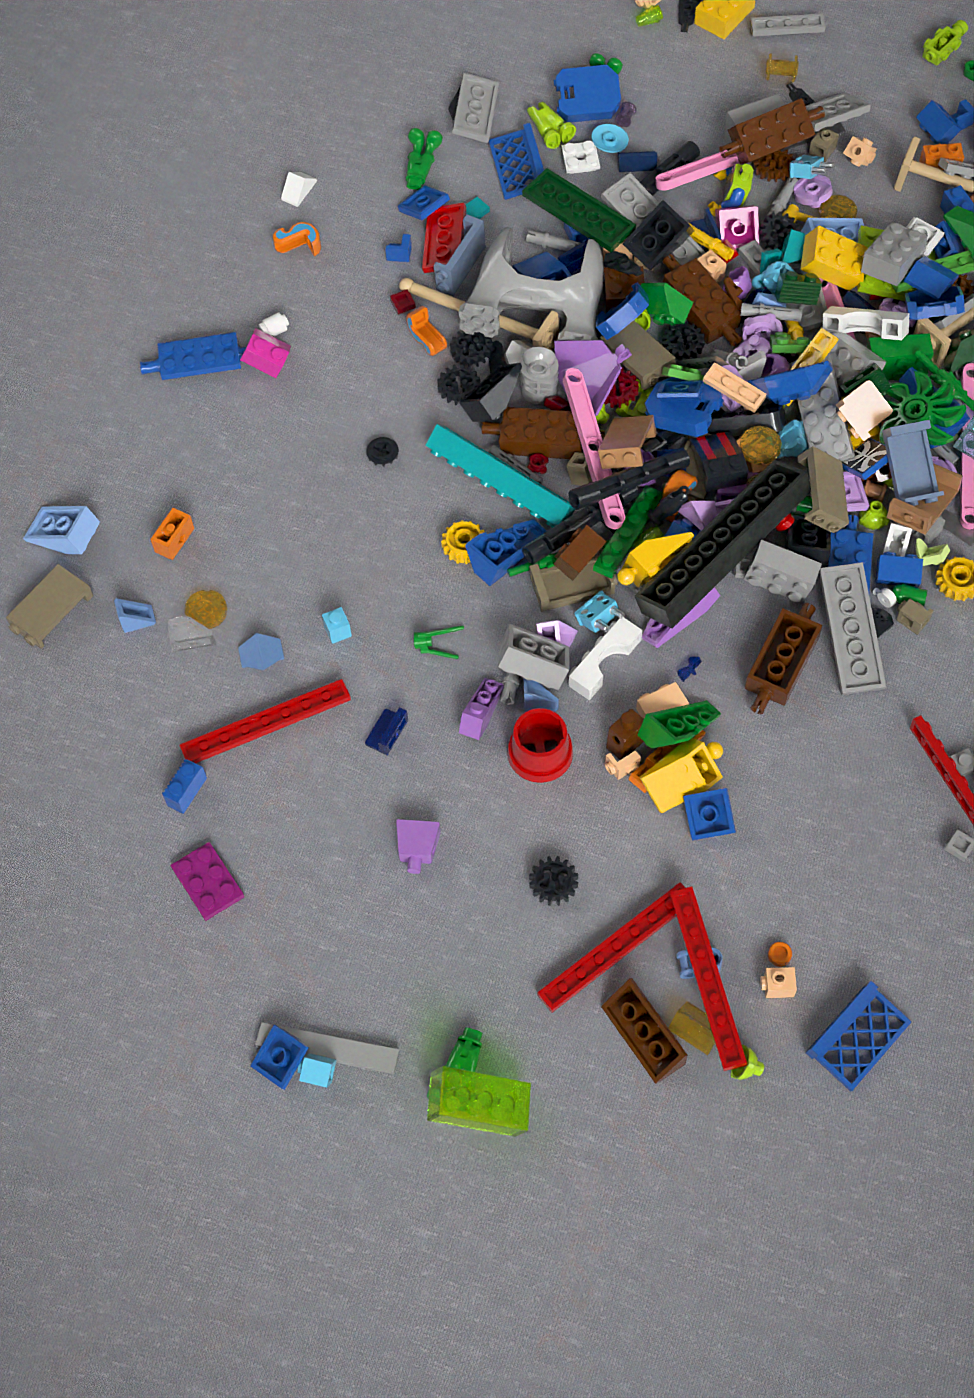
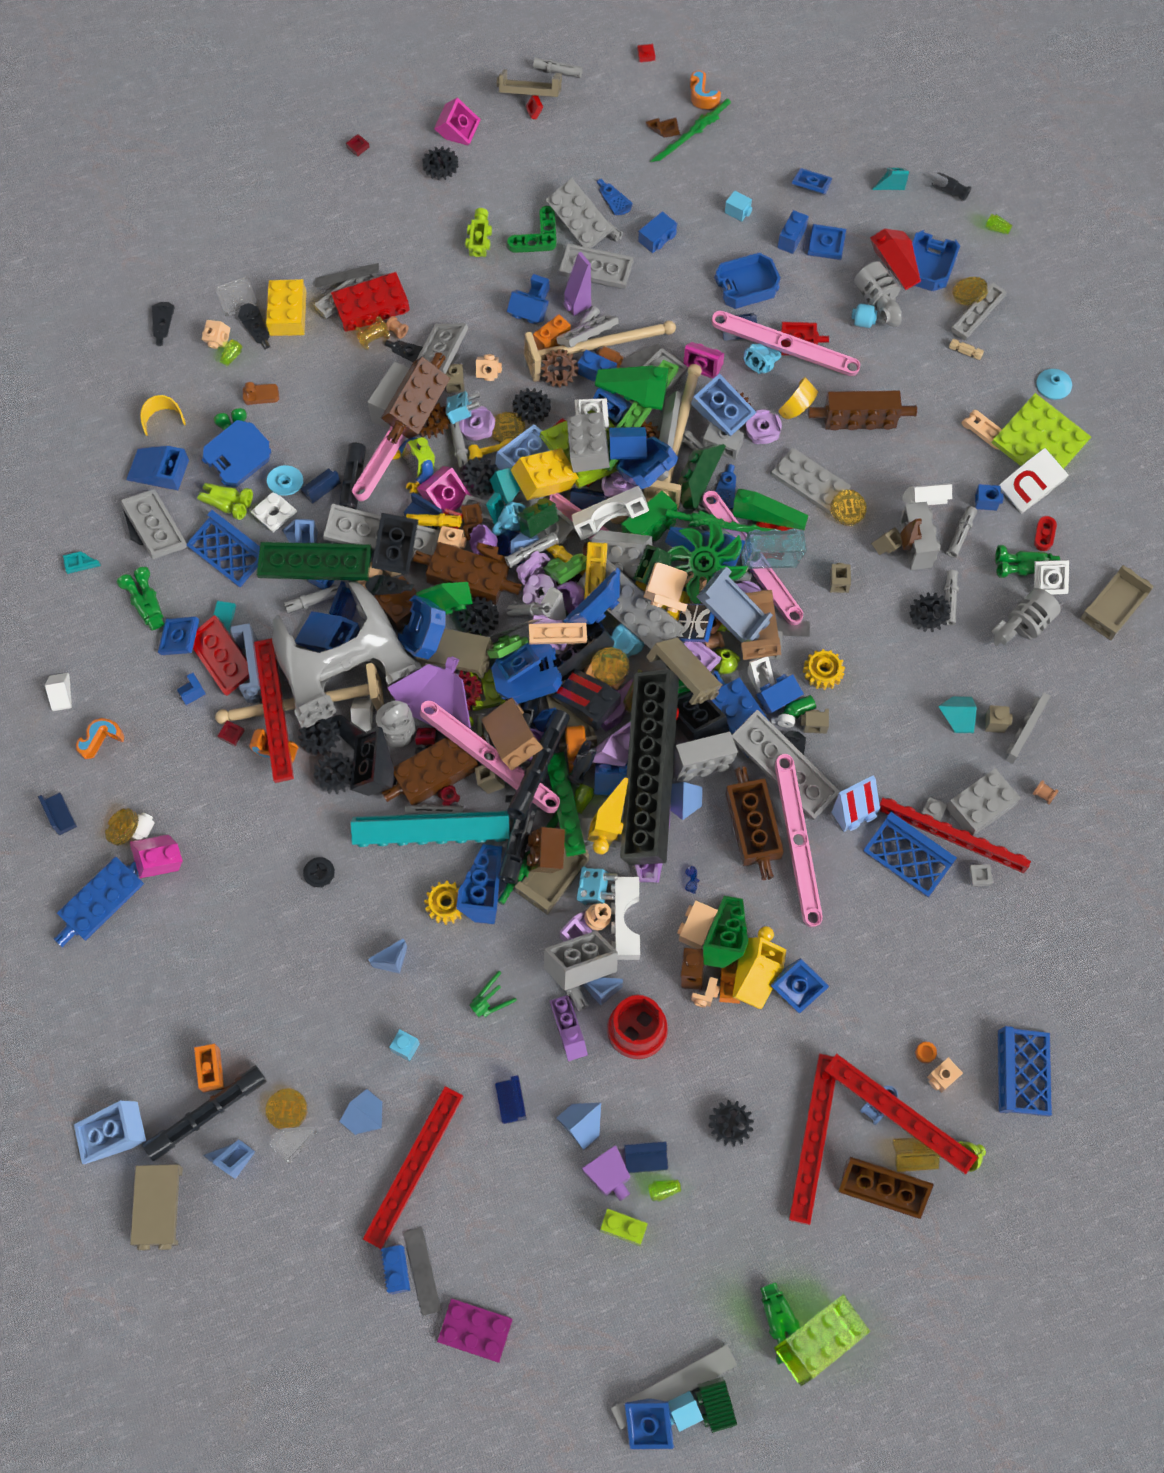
camera: 40 degrees left, 5 degrees up
(142, 565) = (166, 1139): none -> black piece
(205, 807) = (422, 1271): none -> flat silver sticker
(220, 274) = (58, 813): none -> dark blue panel
(259, 314) = (121, 826): none -> clear yellow tile
(348, 1086) = (717, 1405): none -> dark green brick
(384, 552) = (390, 958): none -> medium blue slope
(392, 892) = (623, 1227): none -> lime brick
(393, 102) = (78, 562): none -> teal tile
(429, 789) = (582, 1122): none -> medium blue slope
(446, 304) = (273, 711): none -> red plate
(451, 889) = (663, 1189): none -> clear neon green cone
(459, 854) = (646, 1157): none -> dark blue panel
(517, 69) = (159, 466): none -> blue slope
(551, 19) = (155, 404): none -> yellow piece
(581, 639) = (593, 912): none -> light nougat piece
(591, 183) = (301, 531): none -> medium blue slope
(625, 114) = (280, 451): clear purple bush -> none
(647, 62) = (260, 393): none -> dark orange piece
(738, 597) = (685, 799): none -> medium blue slope
(745, 257) = (472, 517): none -> reddish brown slope
(799, 11) = (347, 275): none -> flat silver sticker
(804, 709) = (800, 854): none -> bright pink beam
(806, 72) = (397, 327): none -> nougat bush
(811, 42) = (374, 298): none -> red bracket
(882, 204) = (536, 399): none -> black gear
(890, 701) = (857, 804): none -> light blue slope
(921, 177) = (565, 360): none -> reddish brown gear
(923, 771) = (919, 840): none -> blue fence
(931, 555) = (791, 664): yellowish green plate -> none

